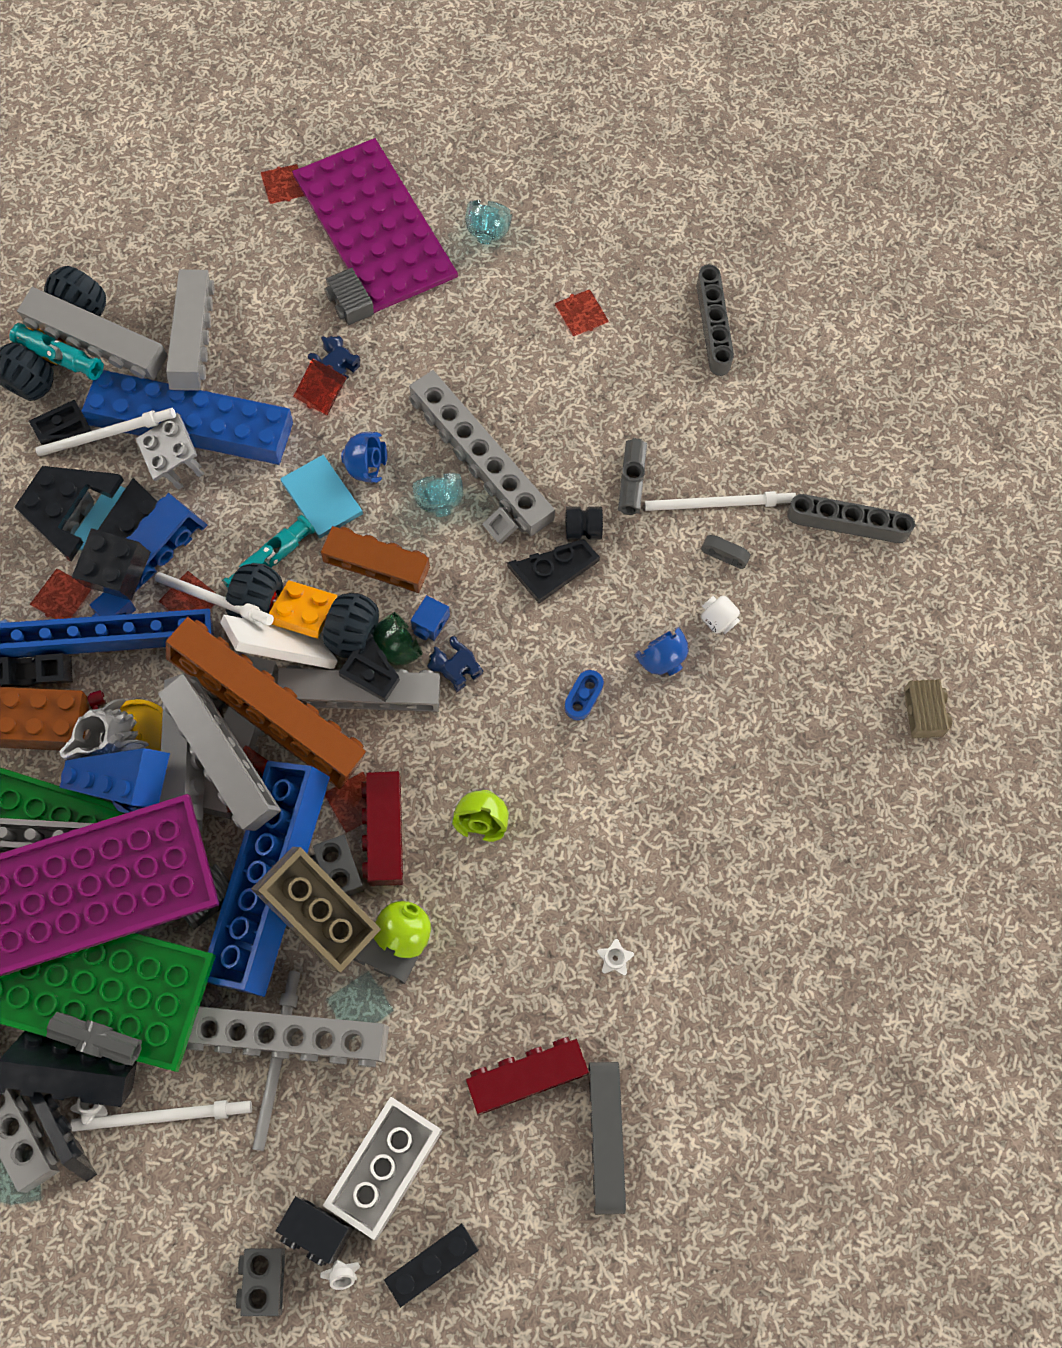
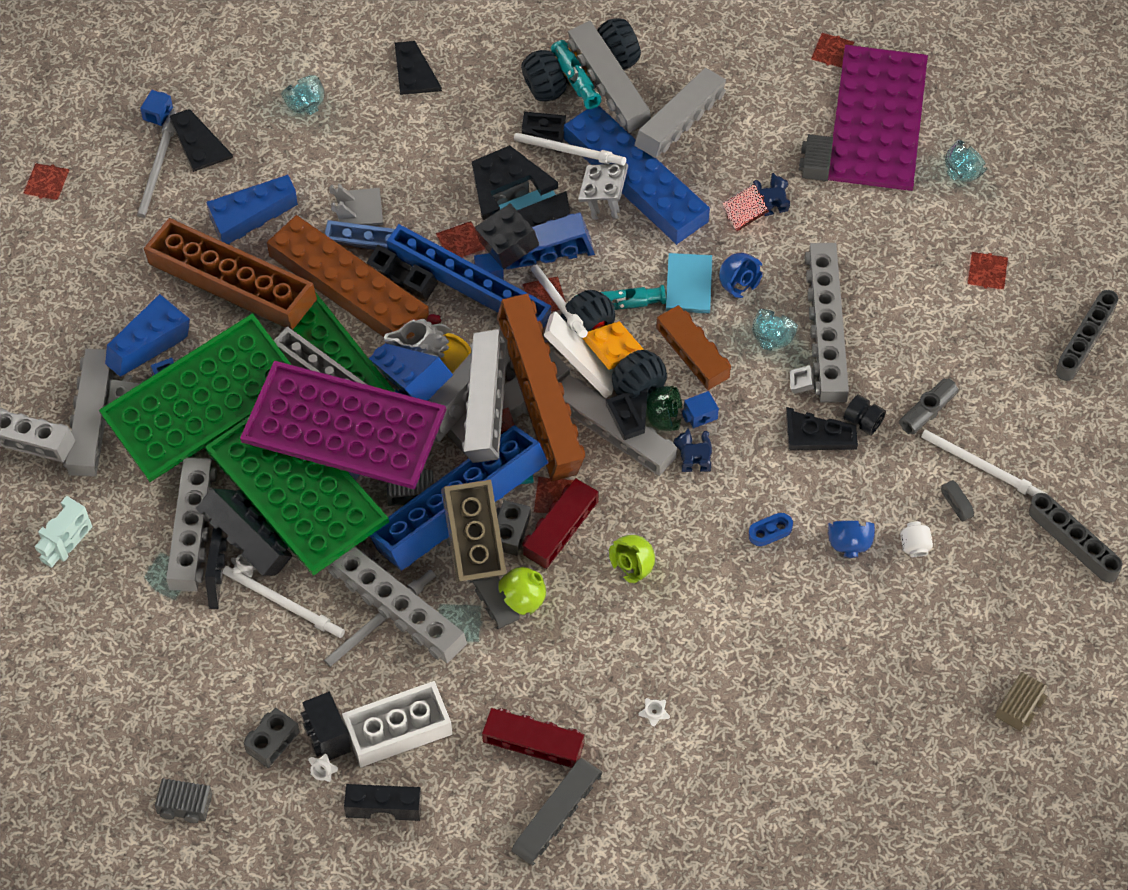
camera: 40 degrees right, 10 degrees down
(94, 1038) = (278, 516): dark grey piece -> none

